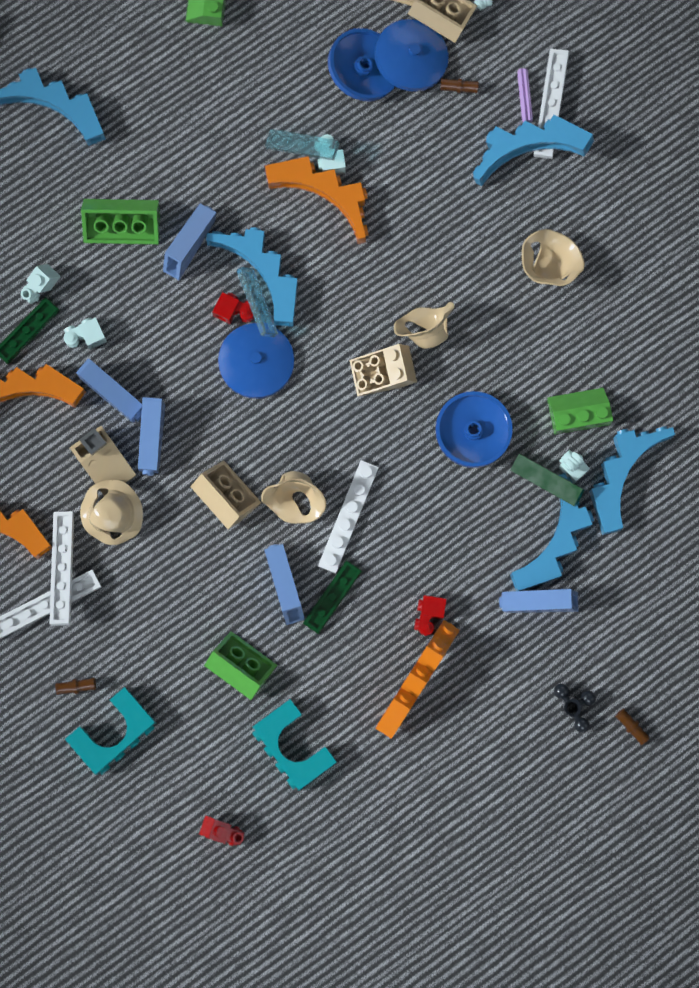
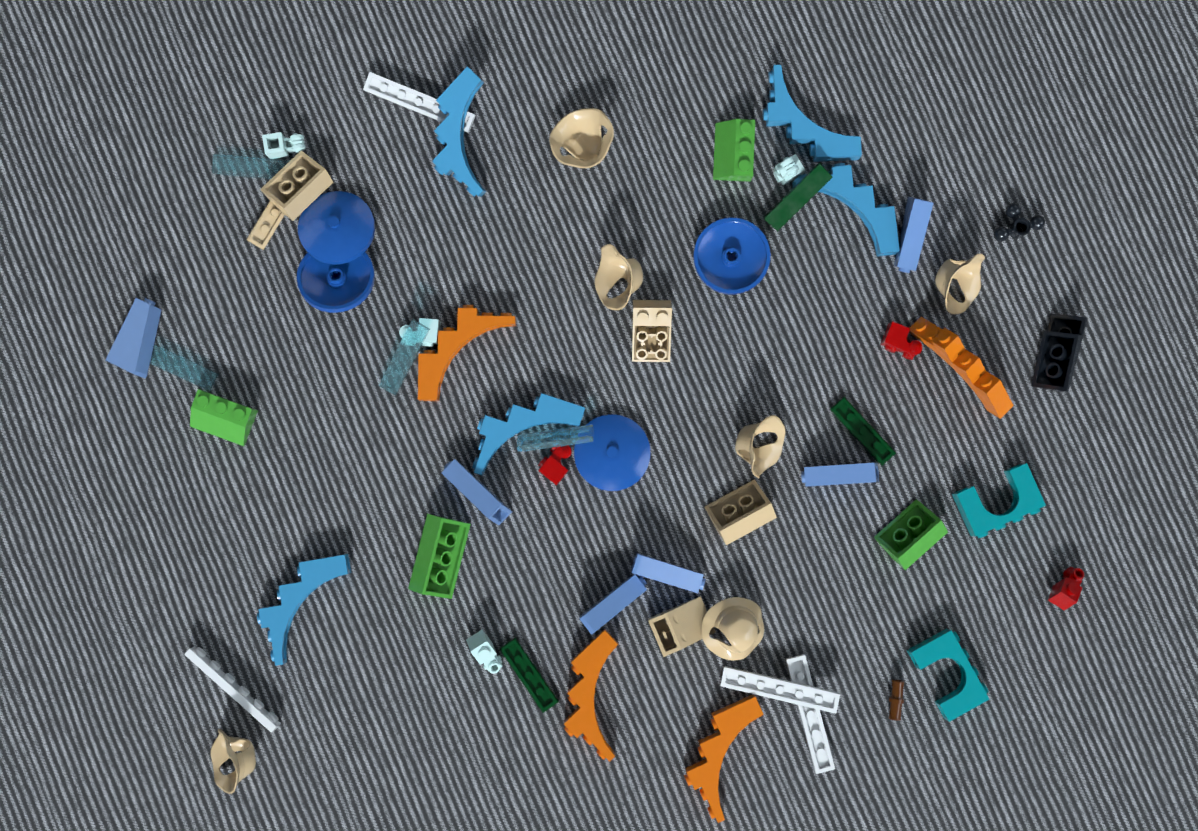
camera: 80 degrees left, 5 degrees up
(88, 331) = (546, 611): light aqua brick -> none
(93, 441) = (665, 632): dark grey plate -> none
(348, 517) = (787, 398): white plate -> none
(455, 772) = (1059, 352): none -> black slope
(459, 85) = (379, 188): reddish brown pin -> none
(512, 668) = (968, 277): none -> tan piece
(525, 98) = (404, 126): lavender axle -> none
(632, 726) = (1048, 176): reddish brown pin -> none

